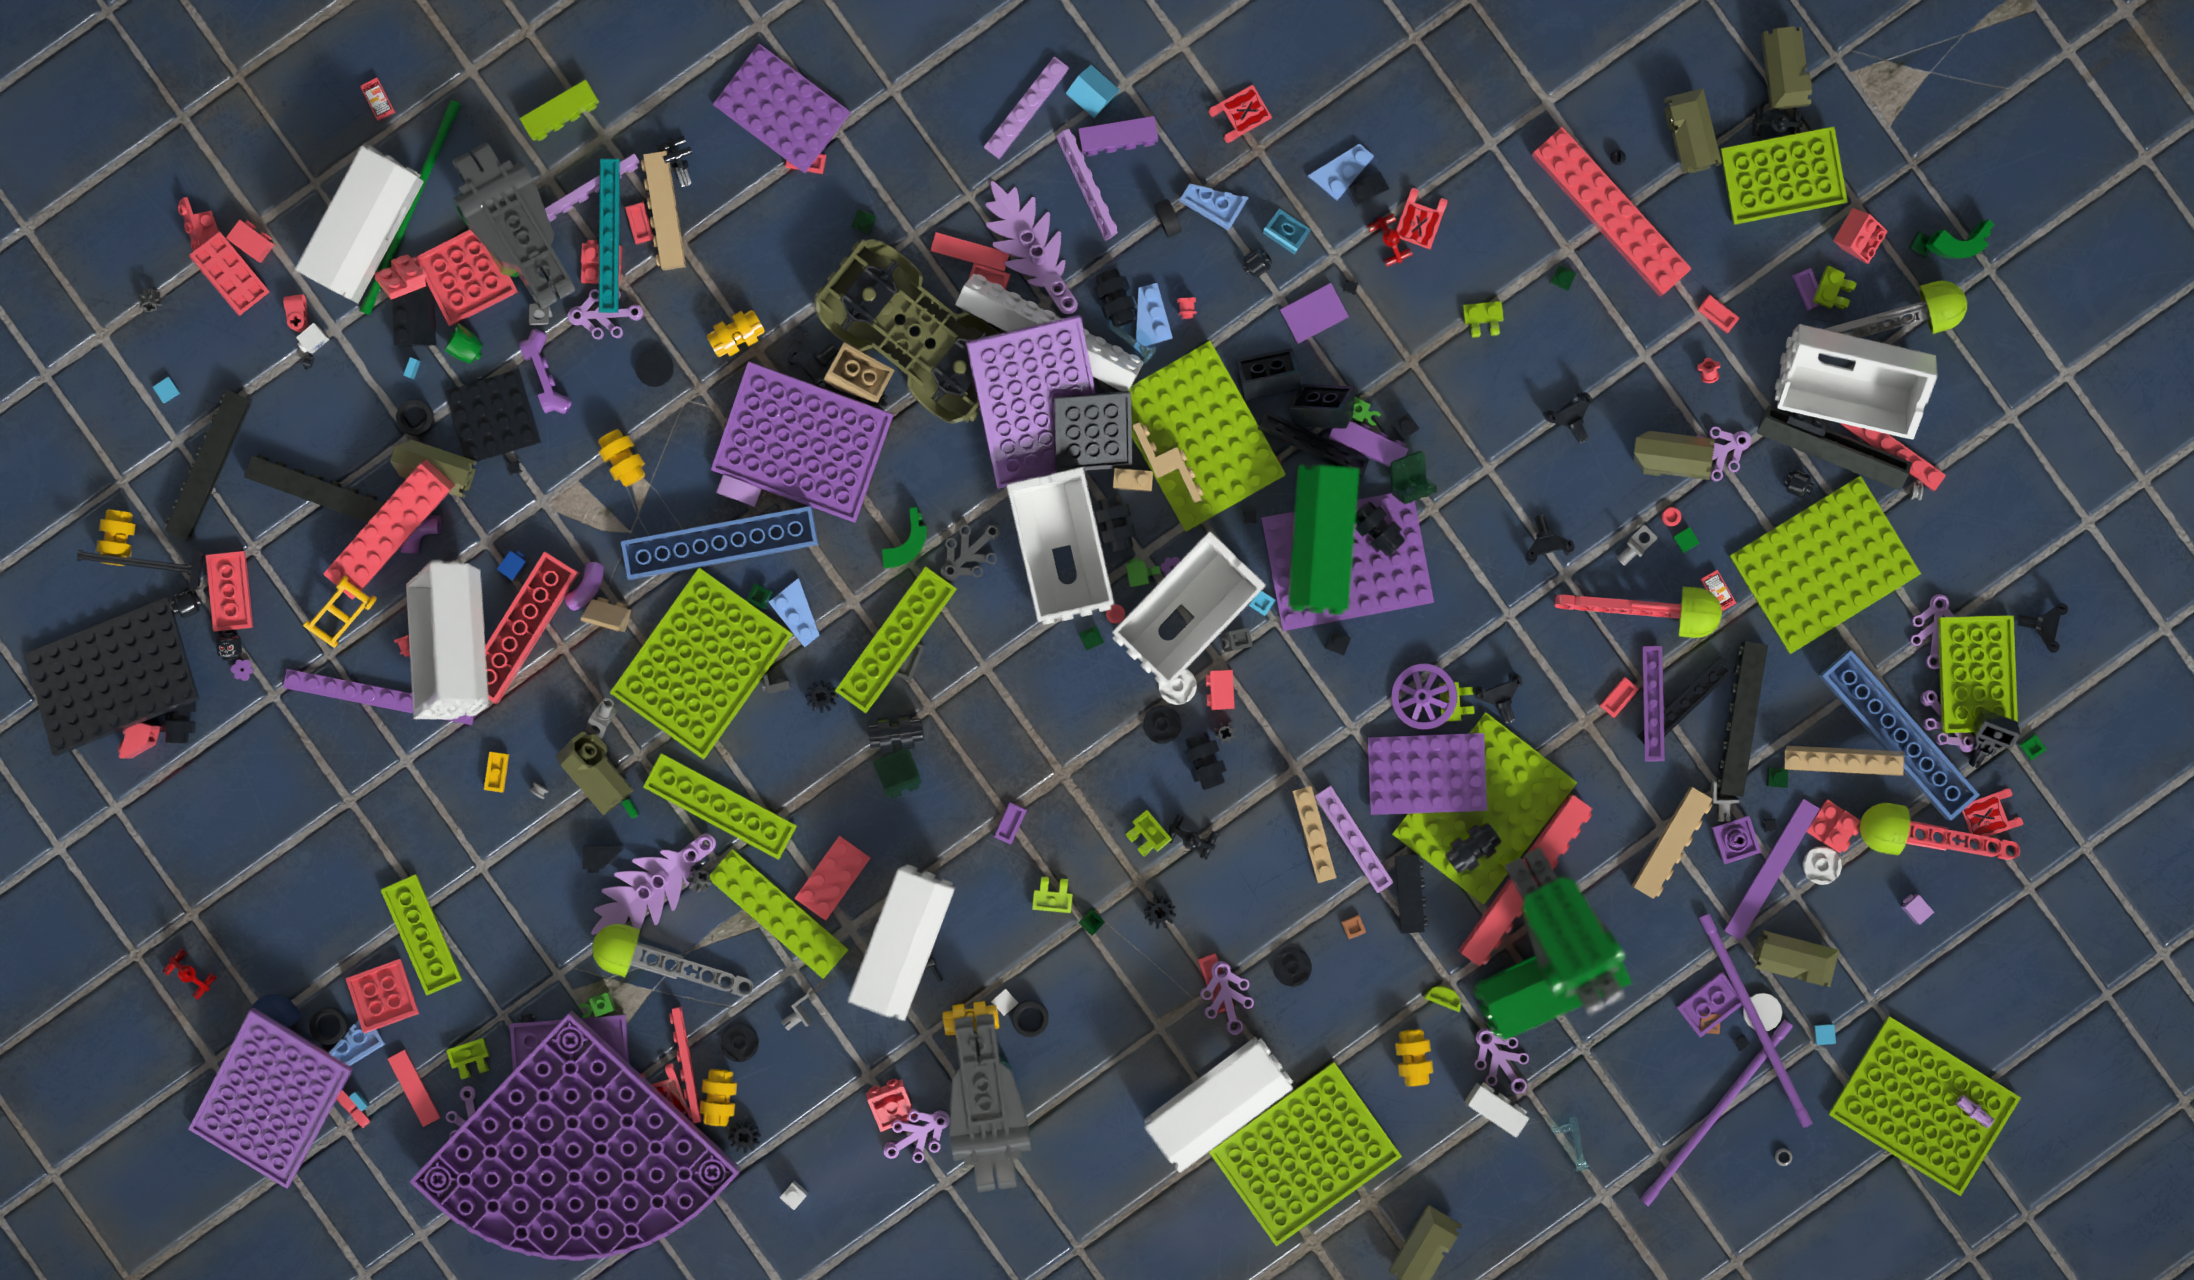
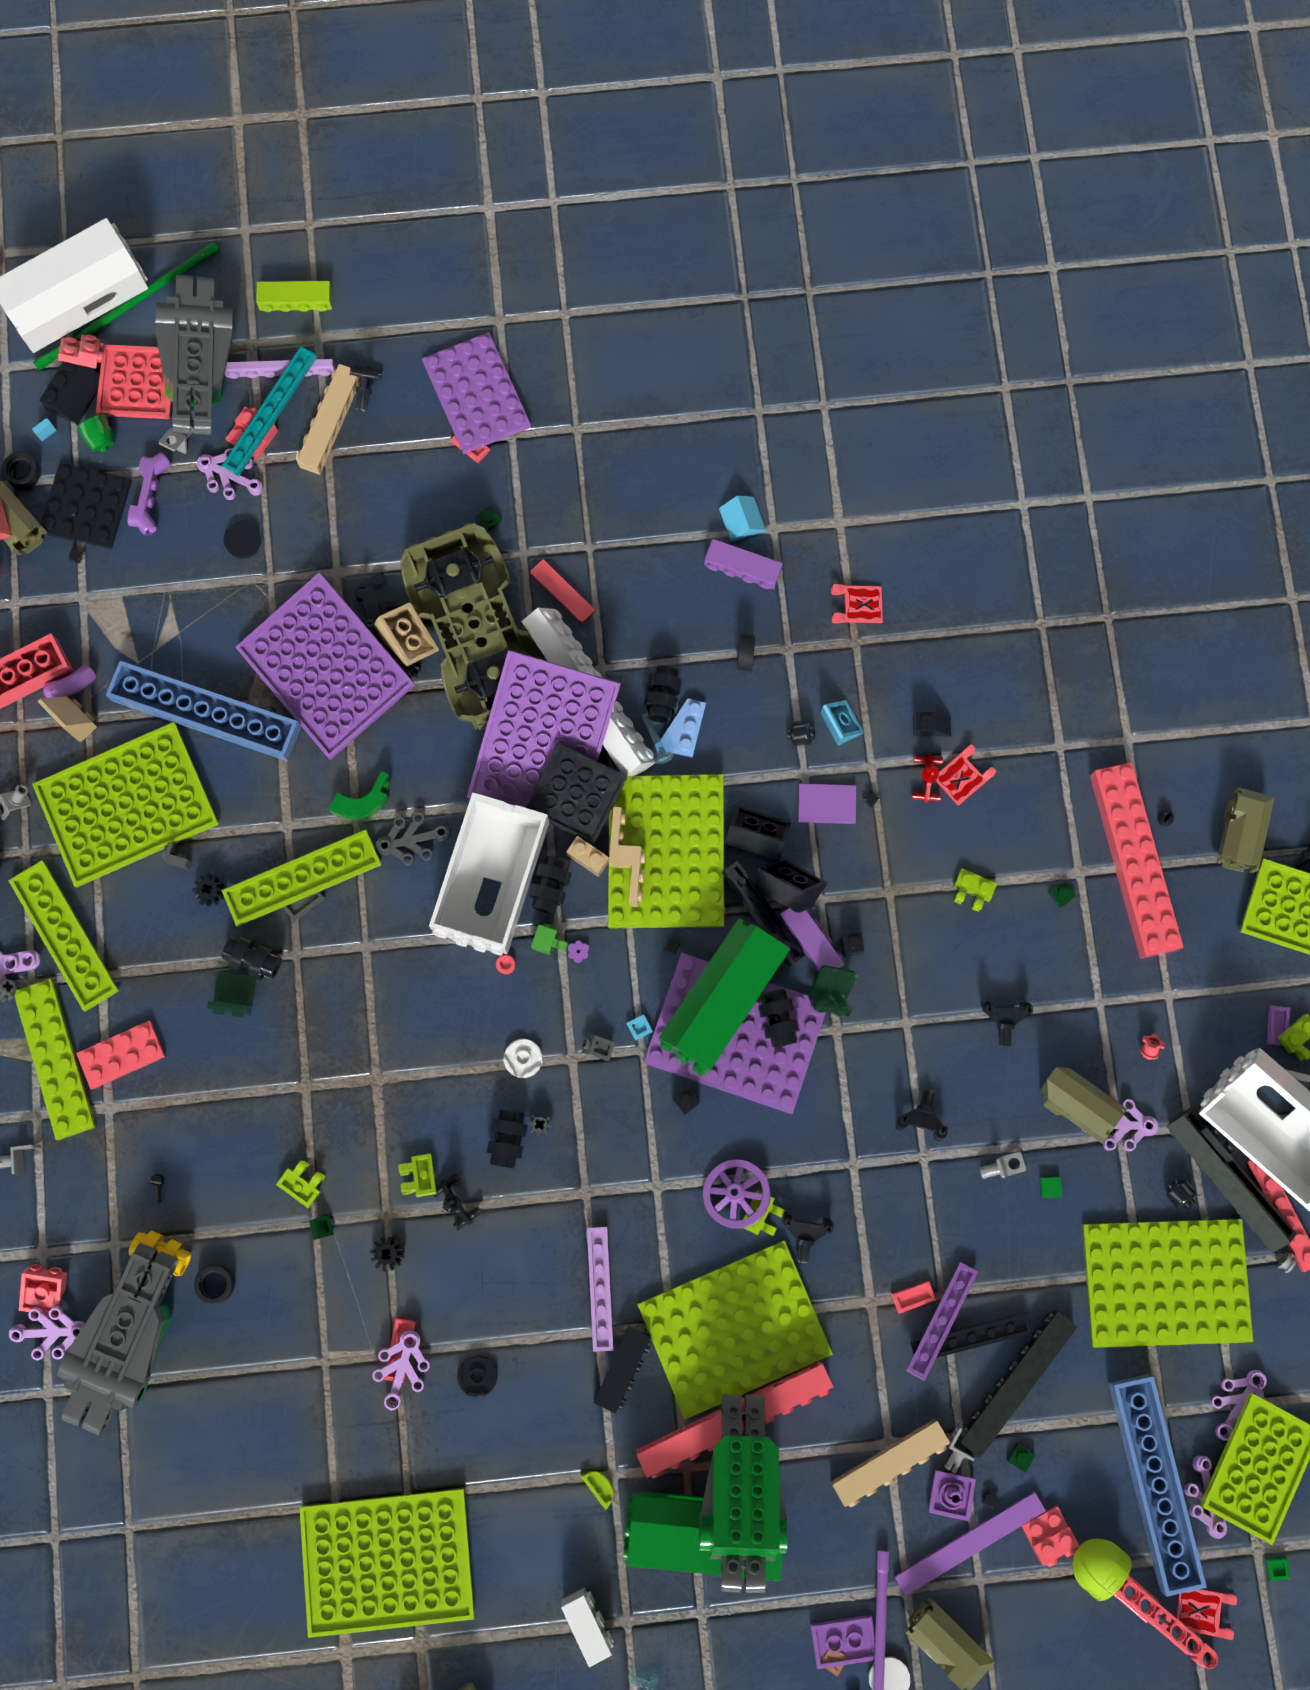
camera: 25 degrees right, 10 degrees down
(377, 99) = (156, 210): tile -> none
(513, 565) = (21, 633): blue brick -> none
(625, 464) = (167, 586): yellow piece -> none
(639, 223) = (303, 417): coral tile -> none
(738, 490) = (247, 677): lavender slope -> none
(745, 324) = (315, 545): yellow piece -> none
(759, 595) = (210, 774): dark green plate -> none
(796, 613) = (232, 807): light blue wing -> none
(902, 942) = (136, 1145): white panel -> none
(991, 275) = (570, 620): coral tile -> none
(1005, 1002) = (201, 1255): white tile -> none
(1010, 823) = (304, 1096): medium lavender tile -> none
(1026, 107) = (679, 502): lavender plate -> none
(1029, 243) = (616, 613): lavender plant -> none
(1086, 183) = (694, 583): lavender plate -> none
(1091, 638) = (472, 973): dark green plate -> none
(1162, 724) = (489, 1085): black tile -> none
(1186, 307) = (719, 737): coral brick -> none
(1211, 587) = (600, 984): white panel -> none
(1214, 205) = (792, 666): light blue wing -> none
(1218, 1103) = (329, 1467): white panel -> none
(1221, 689) = (557, 1083): coral slope -> none
(1314, 834) = (566, 1263): tan bracket -> none
(1342, 171) = (917, 698): light blue wing -> none
(1353, 926) = (554, 1370): nougat tile -> none
(1361, 412) = (821, 909): bright green brick -> none
(1415, 1066) = (535, 1538): yellow piece -> none
(1427, 774) = (700, 1267): medium lavender plate -> none
(1479, 843) = (694, 1360): black piece -> none
(1498, 1058) = (617, 1575): lavender plant -> none
(1671, 516) = (1048, 1158): coral tile -> none
(1698, 611) = (1027, 1260): piece -> none
(1717, 586) = (1055, 1251): tile -> none
(1718, 314) = (1185, 1002): coral tile -> none
(1822, 865) = (1019, 1567): white tile -> none
(1844, 760) = (1095, 1479): tan brick -> none
(1916, 908) = (1089, 1663): lavender brick -> none
(1992, 734) = (1247, 1535): black brick -> none

